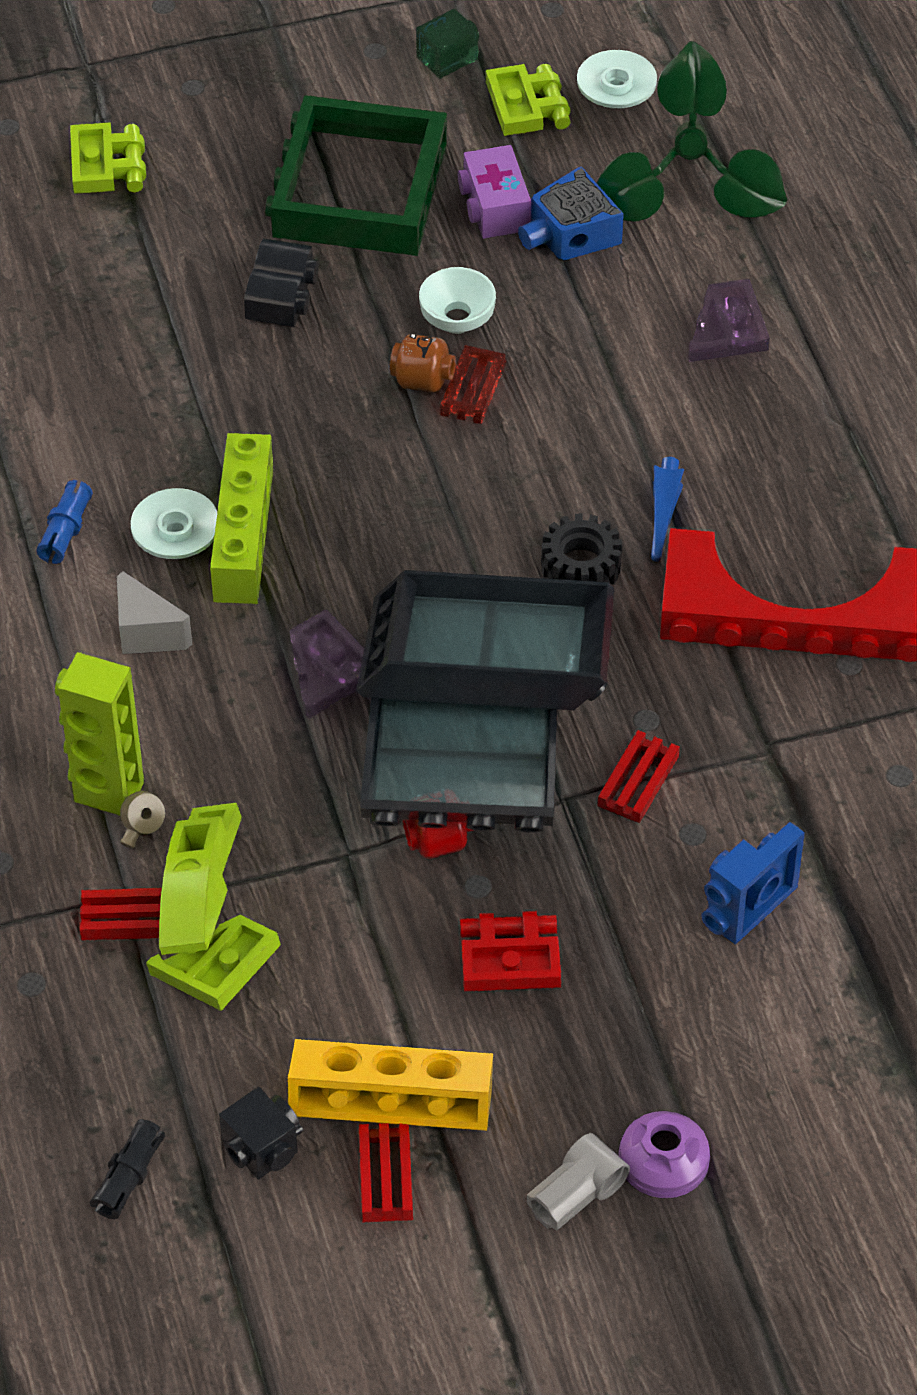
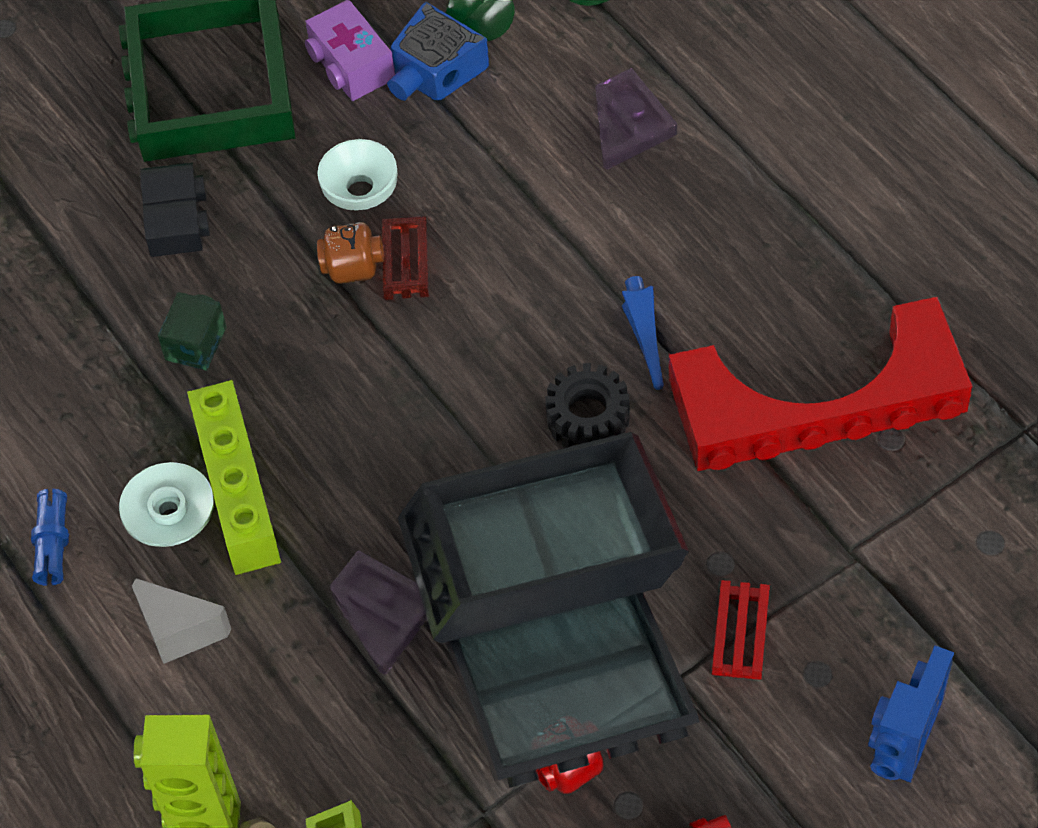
camera: 15 degrees left, 5 degrees up
(255, 388) = (192, 330): none -> clear green brick

